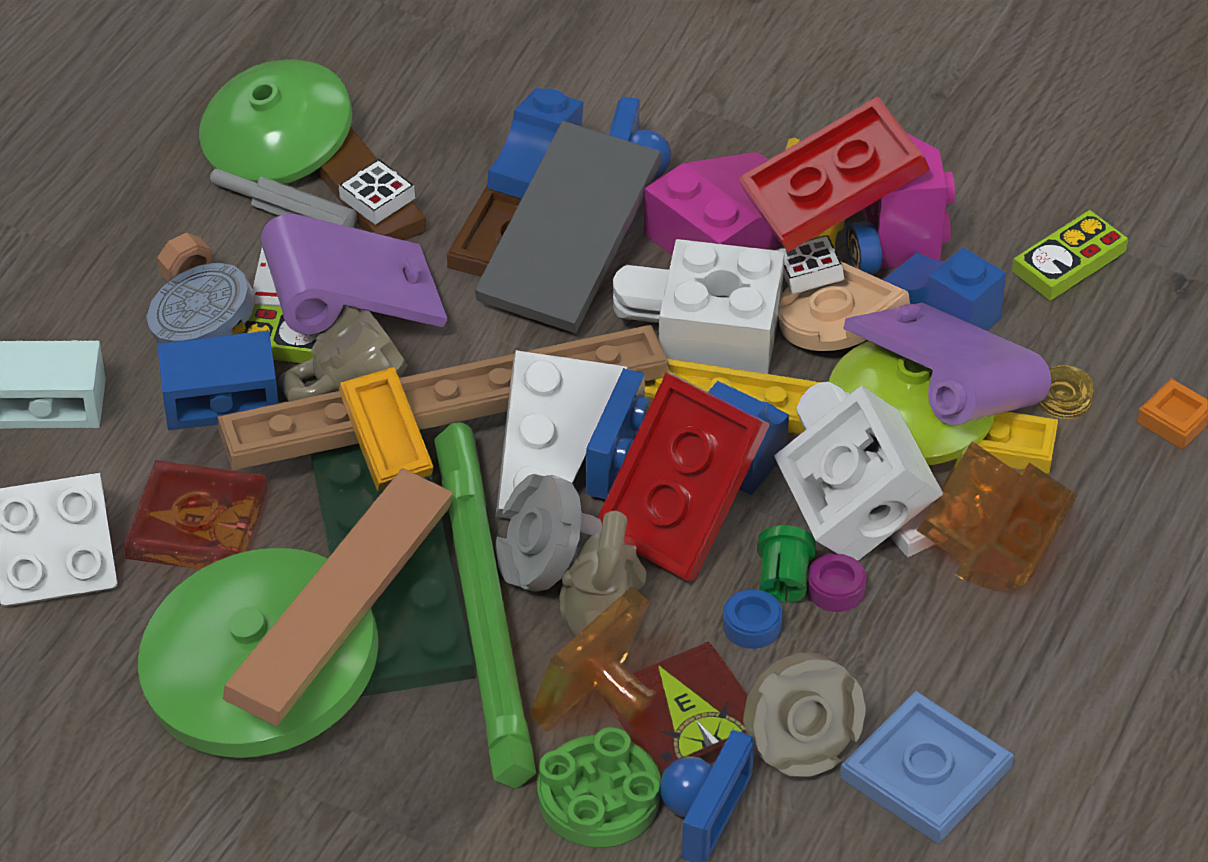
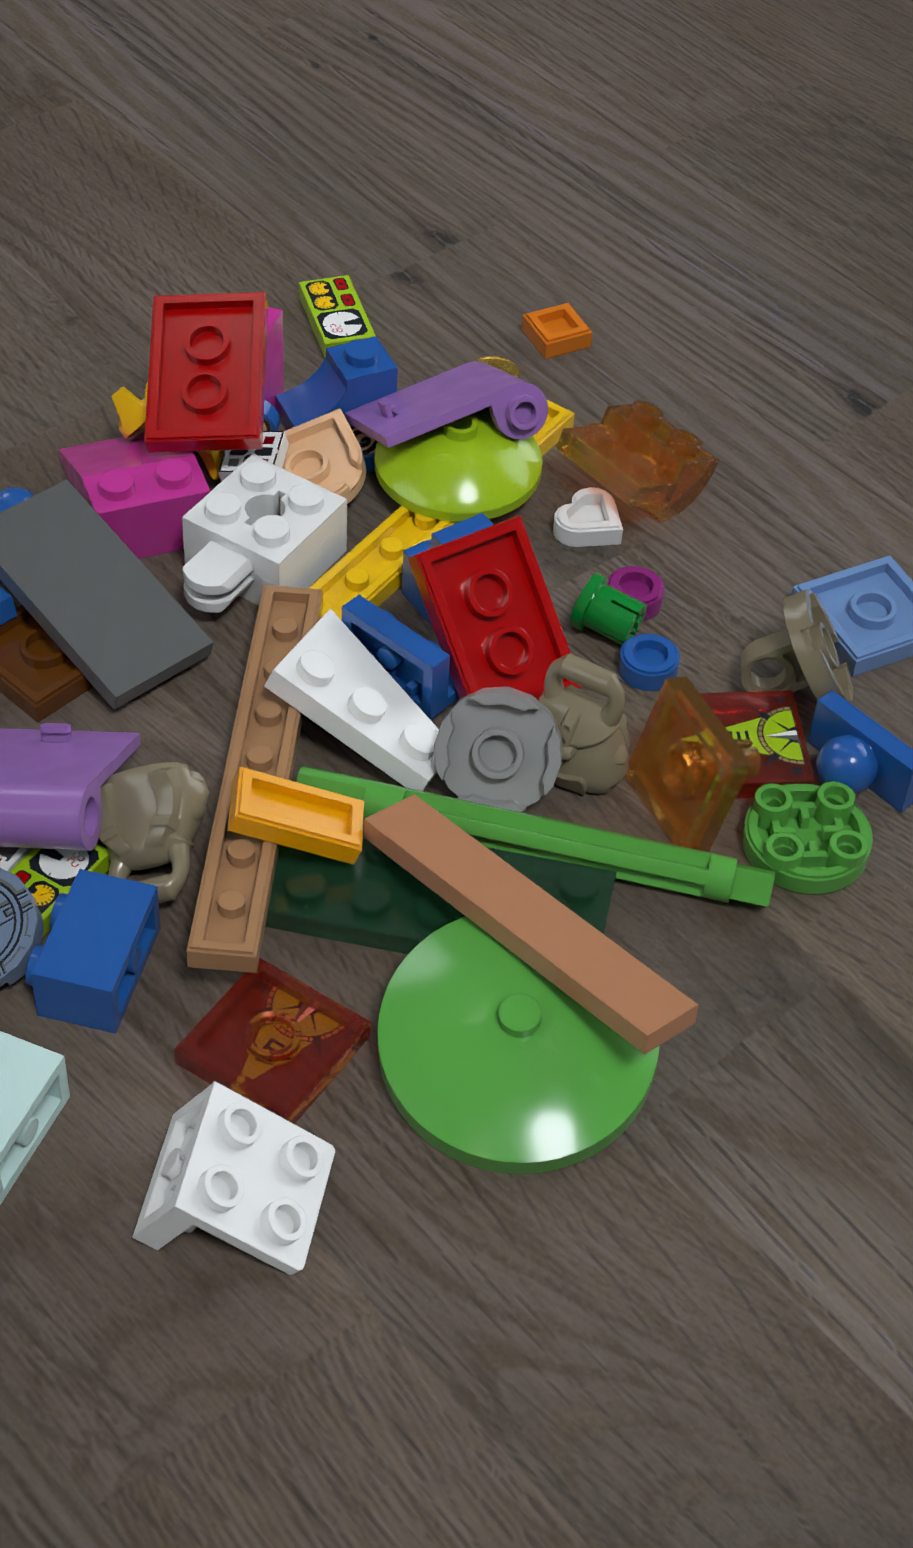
camera: 70 degrees left, 0 degrees up
(855, 469) = (564, 499): white brick -> none

